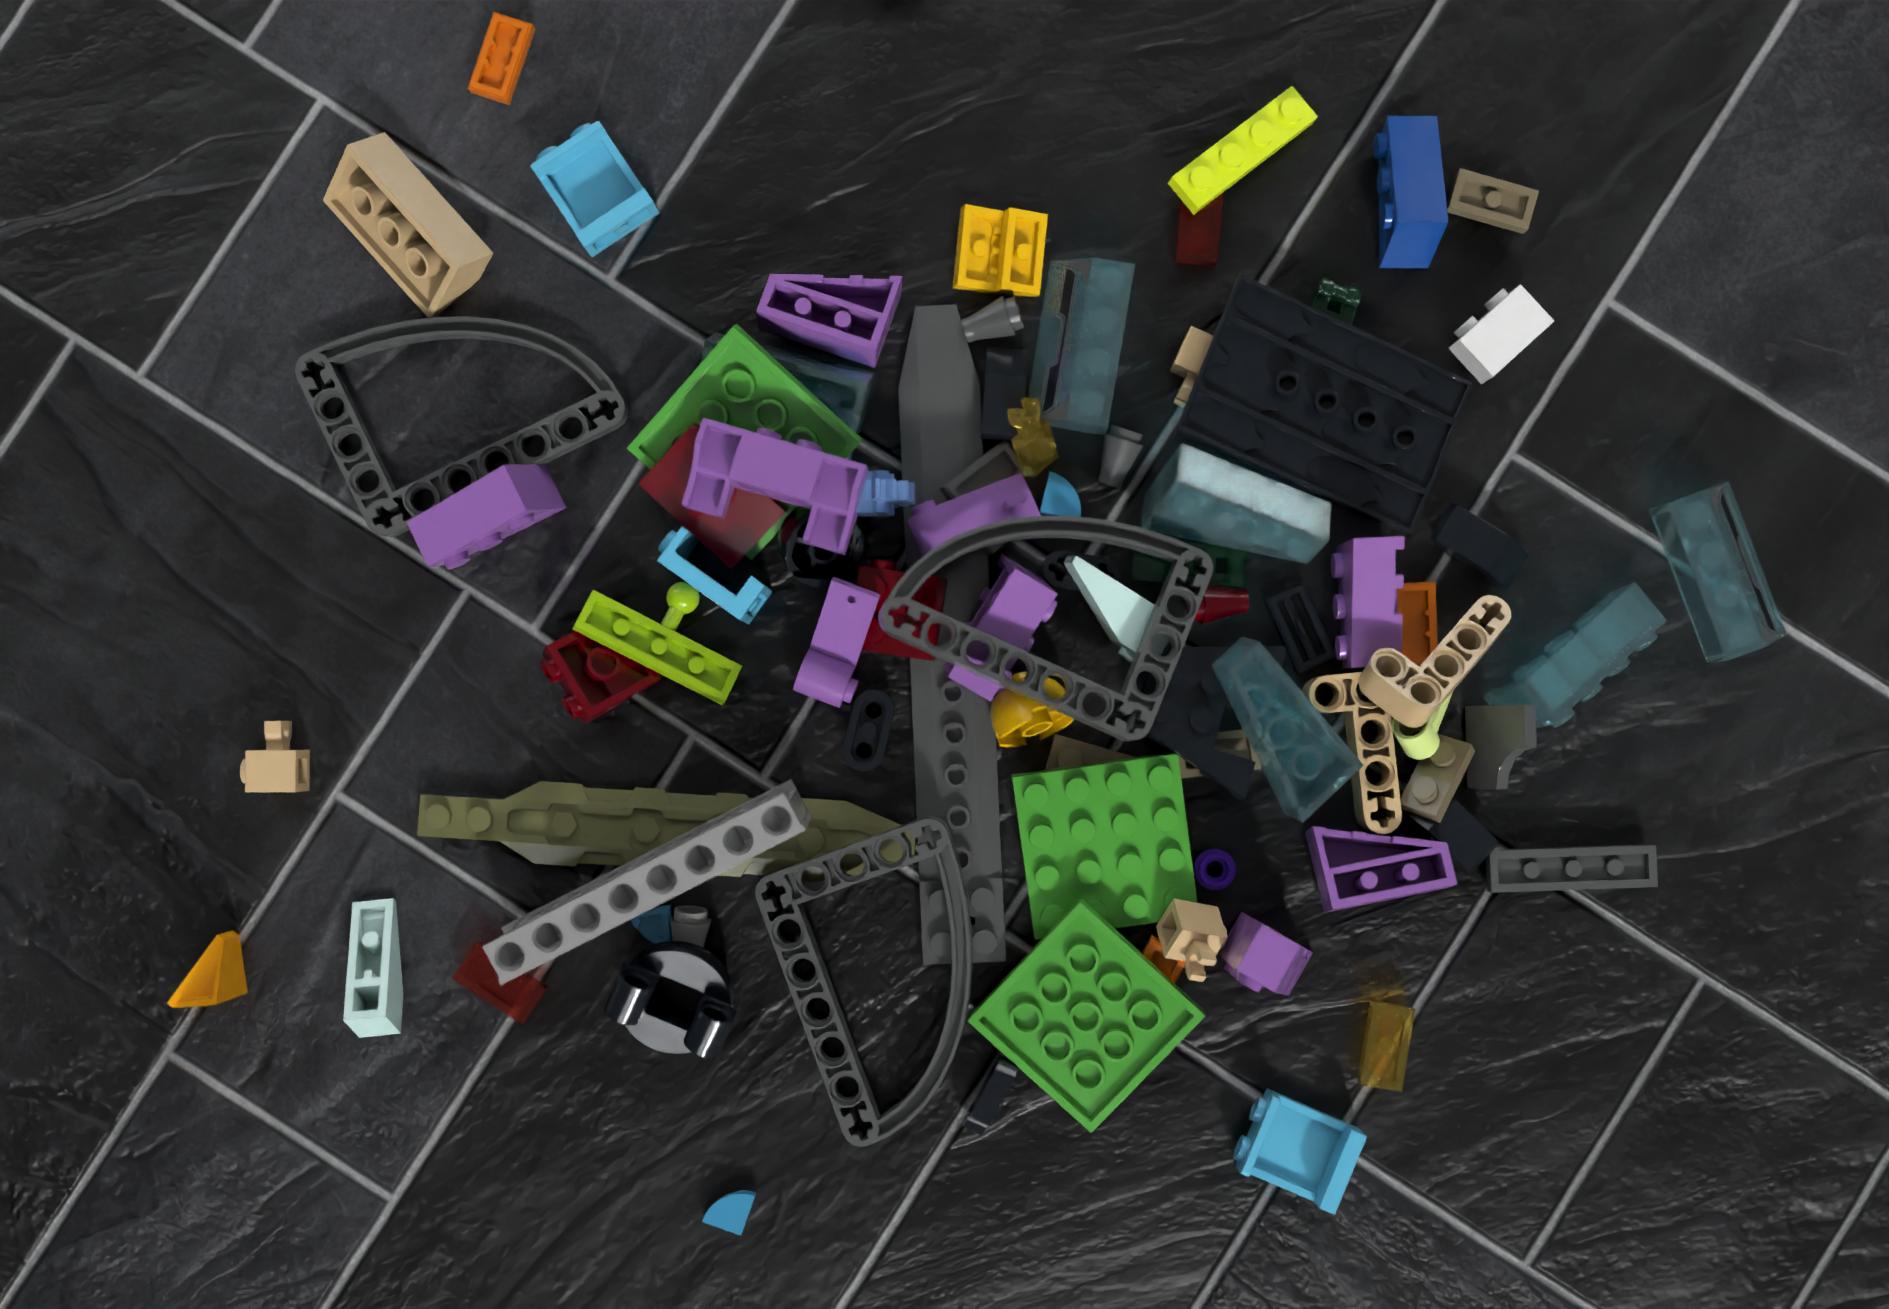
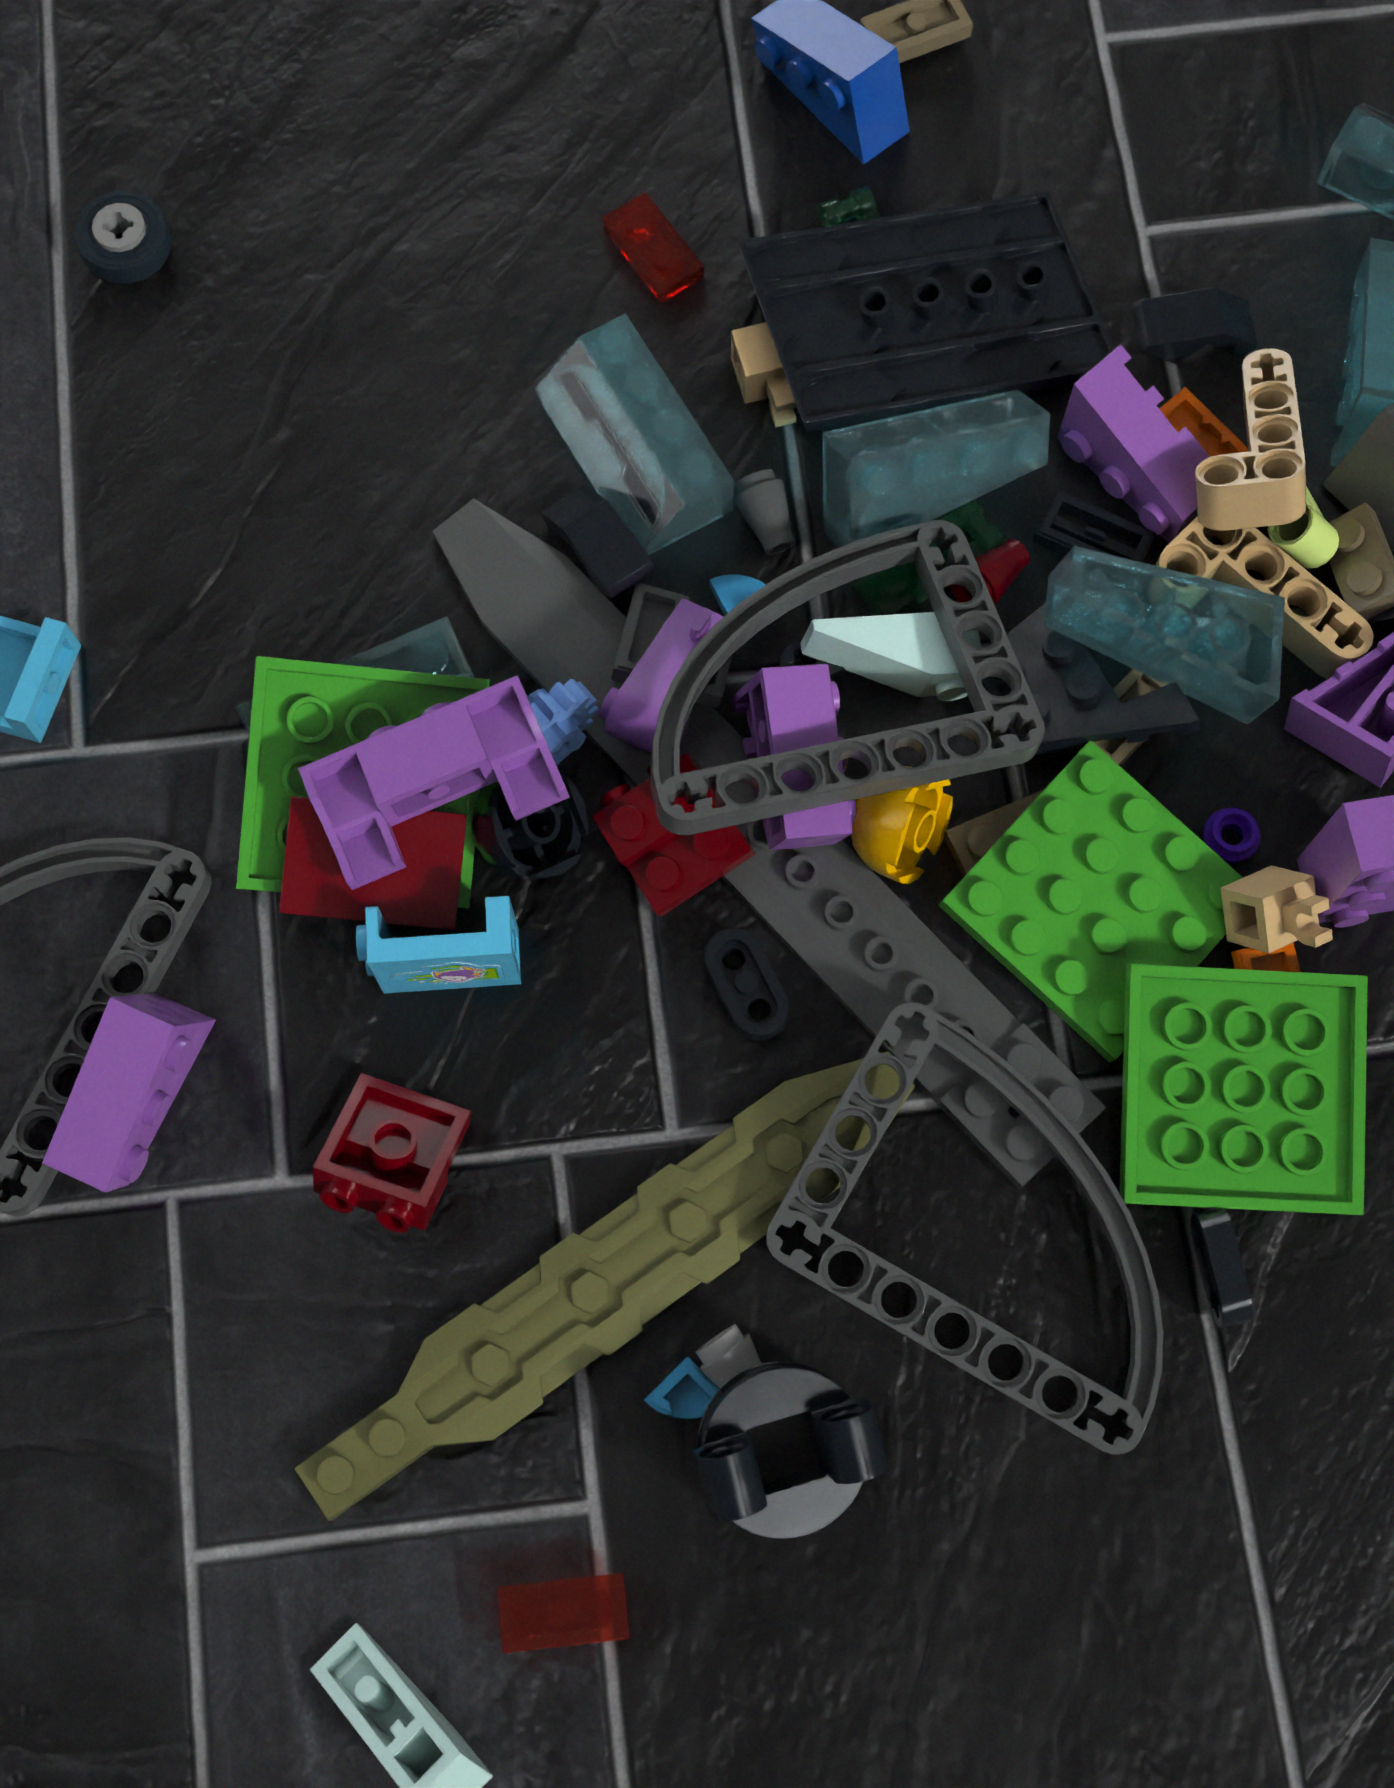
camera: 40 degrees left, 15 degrees down
(277, 766) = (95, 1575): tan brick -> none
(648, 881) = (641, 1336): light grey tile -> none
(658, 644) = (439, 1071): lime plate -> none
(731, 1211) = (1054, 1658): dark azure tile -> none
(831, 314) = (349, 595): medium lavender wedge -> none
(837, 644) = (636, 914): medium lavender door -> none
(993, 321) = (527, 480): dark grey cone -> none
(1000, 251) = (476, 417): yellow slope -> none
(1034, 442) = (668, 558): clear yellow plate -> none
(1242, 150) = (638, 151): neon yellow plate -> none
(1500, 334) = (1034, 125): white brick -> none

